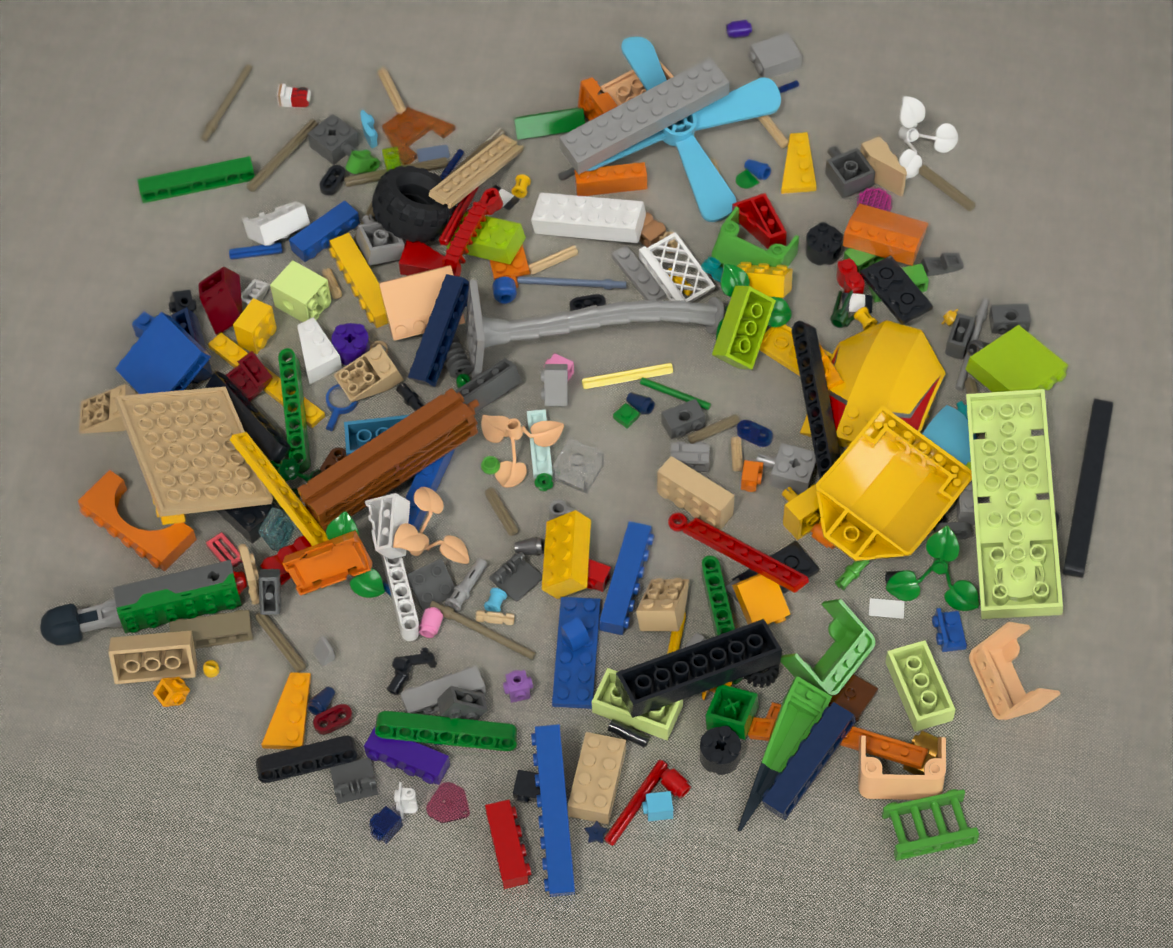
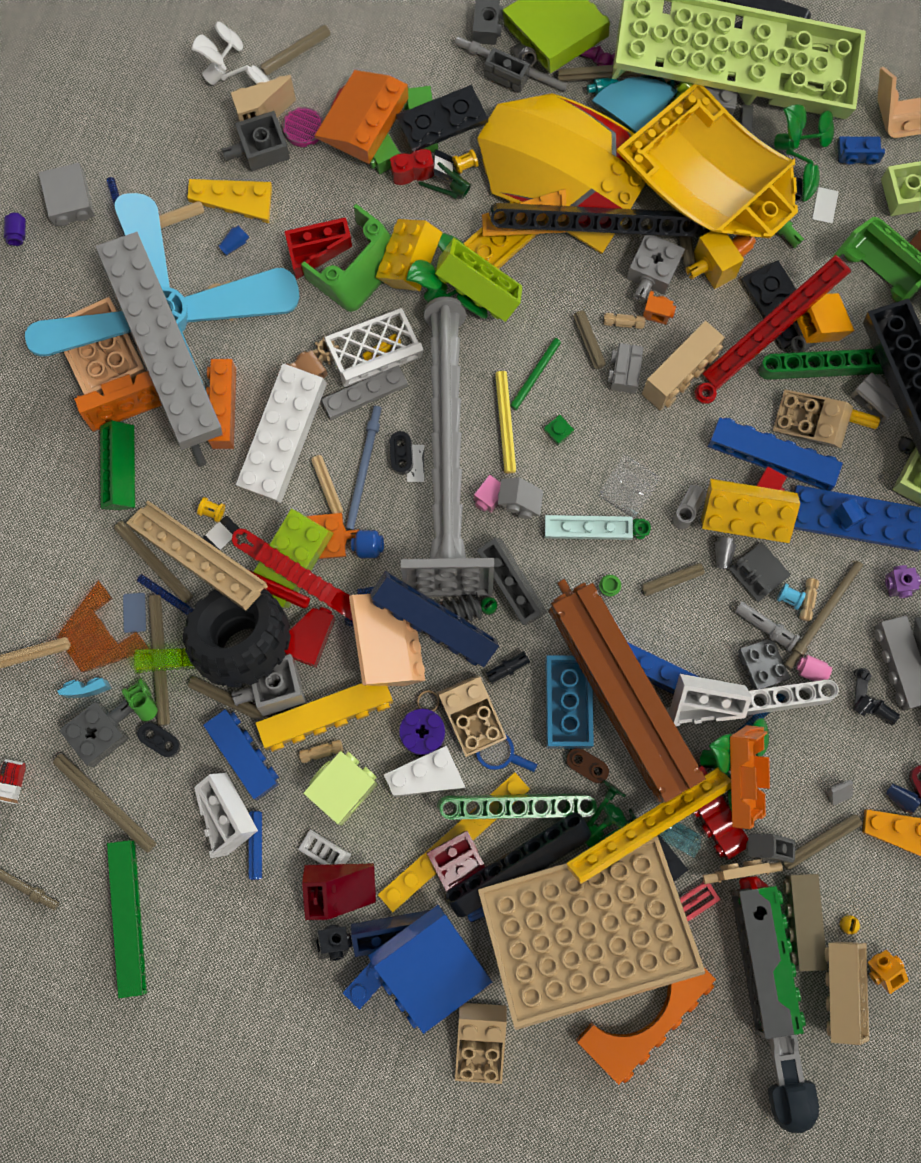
camera: 85 degrees left, 20 degrees up
(255, 326) = (383, 848): yellow brick -> none
(409, 538) = (738, 676): light nougat plant -> none
(496, 427) = (584, 517): light nougat plant -> none
(641, 403) = (547, 410): dark blue cone -> none
(687, 411) = (576, 380): dark grey brick -> none
(712, 266) = (375, 306): teal plate -> none
(746, 180) = (243, 257): green piece -> none
(754, 432) = (599, 298): clear blue plate -> none
(823, 244) = (358, 185): black brick -> none
(942, 265) = (400, 67): dark grey slope -> none
(949, 317) = (476, 76): yellow plate -> none

